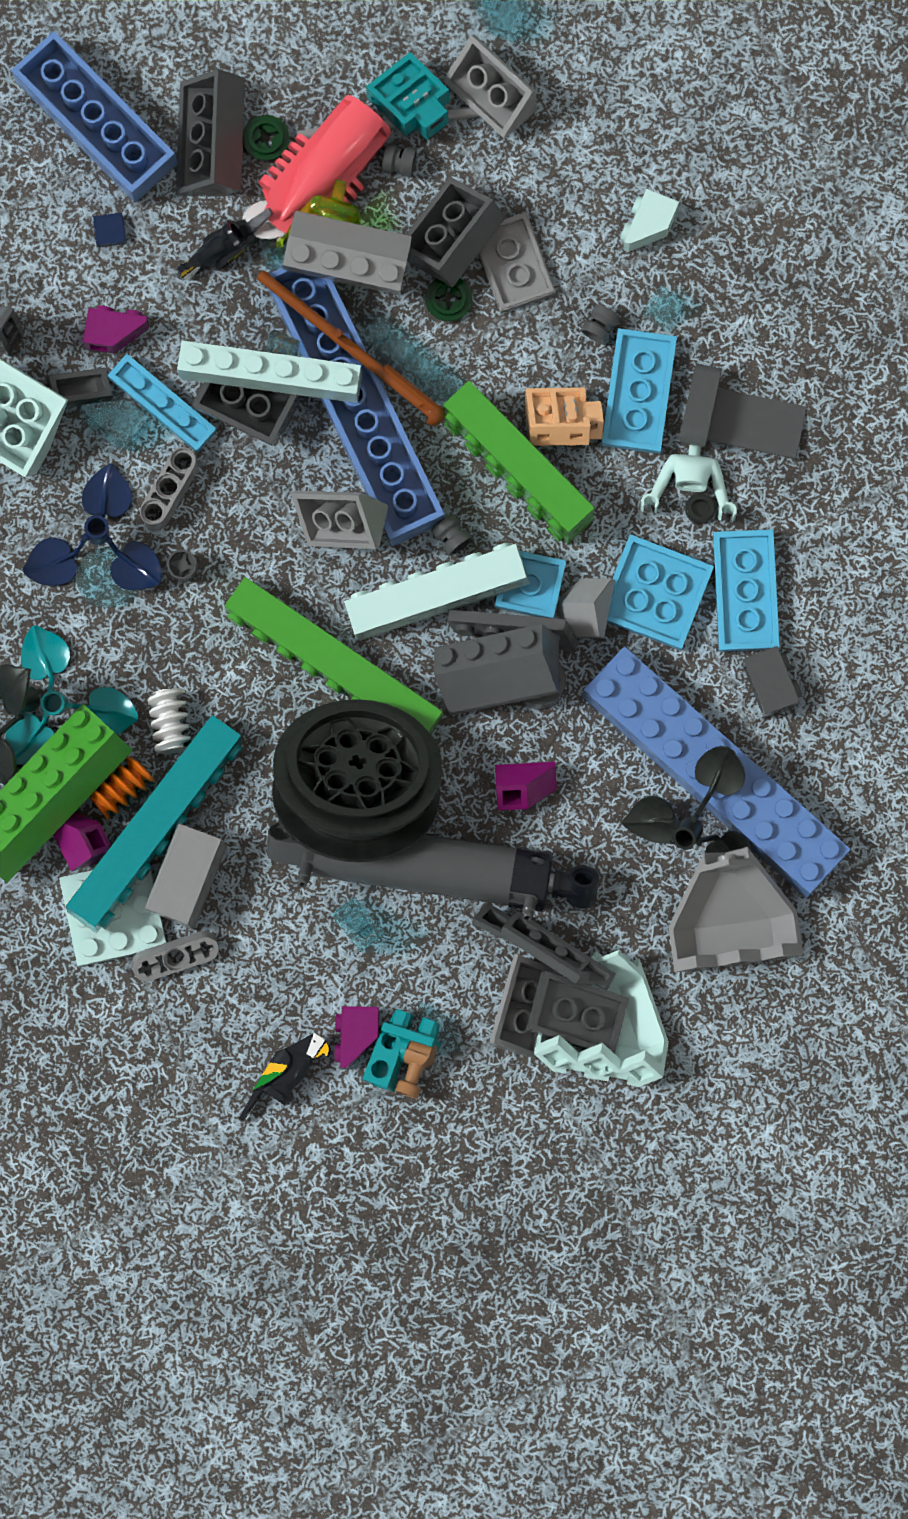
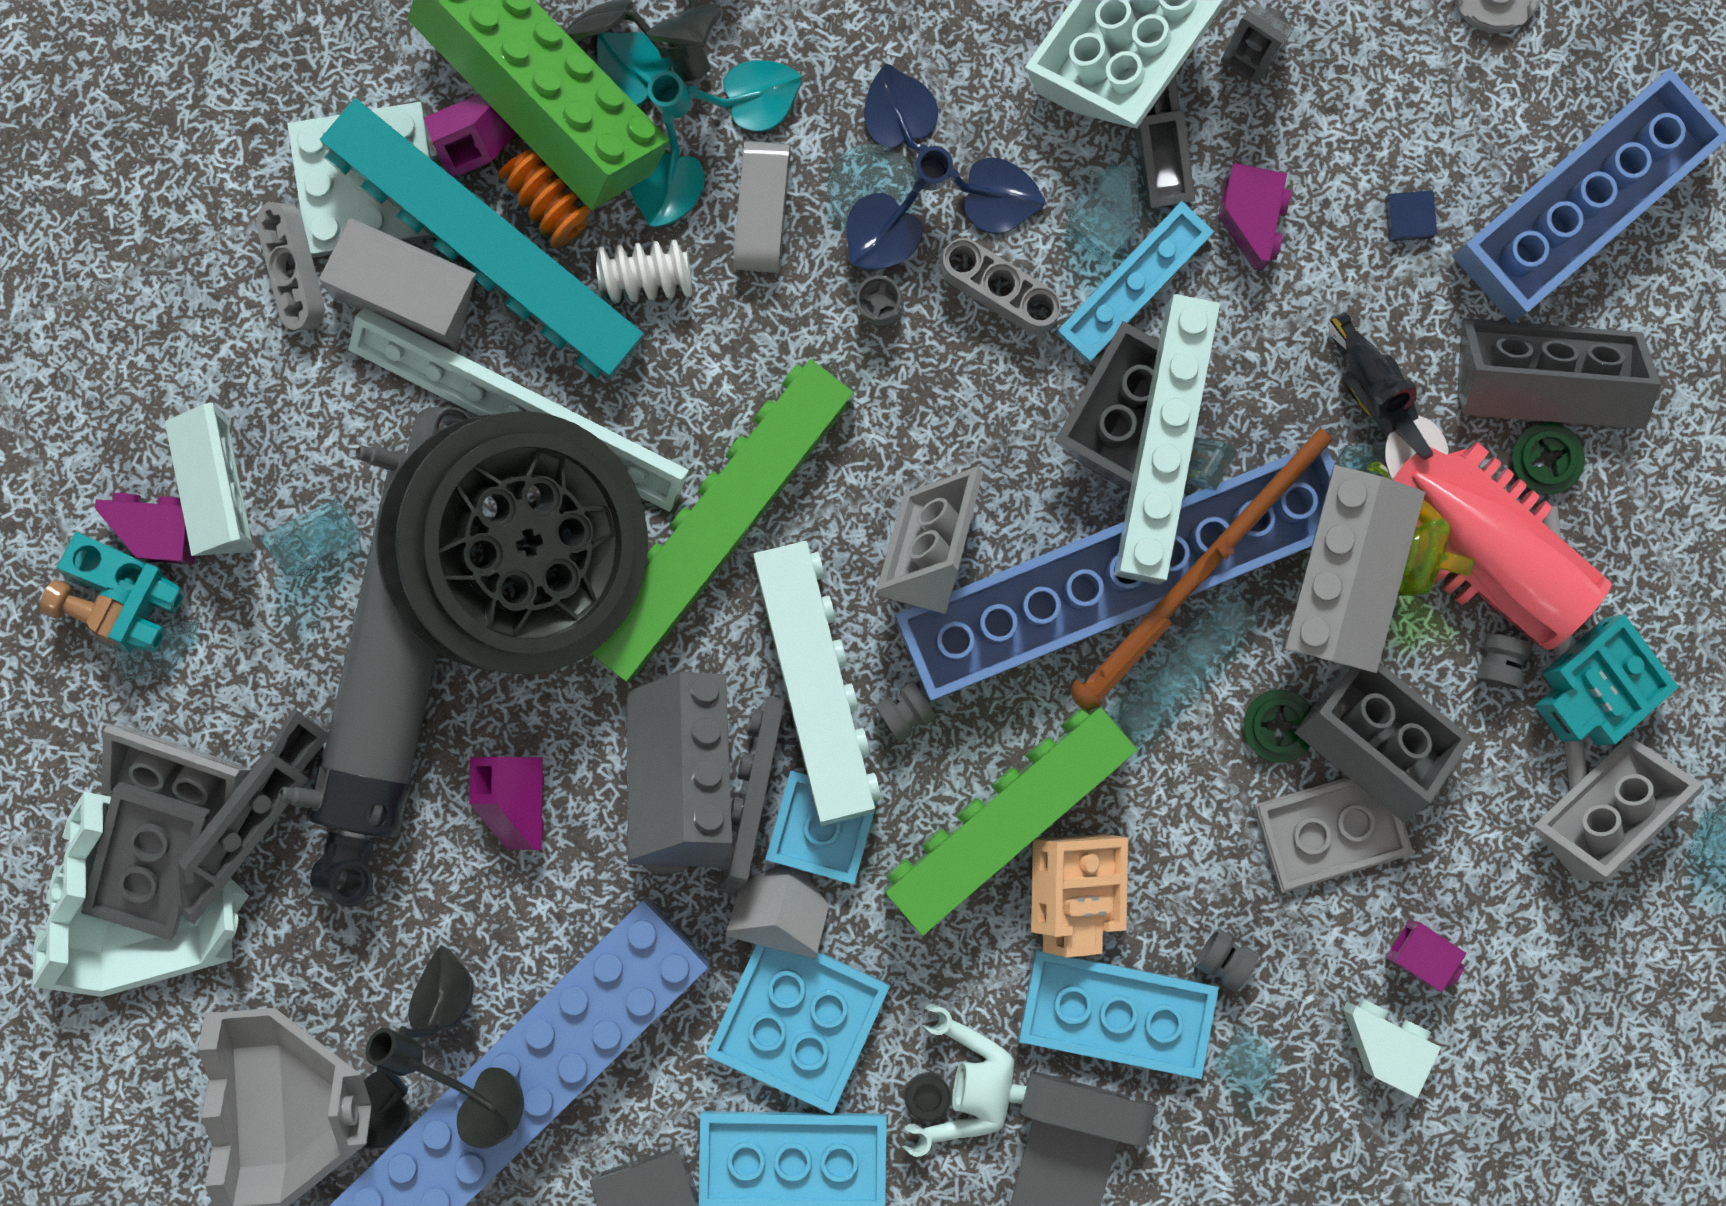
camera: 85 degrees right, 5 degrees up
(115, 646) = (761, 206): none -> light grey beam
(255, 817) = (490, 393): none -> light aqua plate
(287, 1070) = (103, 424): black animal -> none
(324, 991) = (208, 482): none -> light aqua slope
(590, 200) = (1427, 956): none -> magenta brick

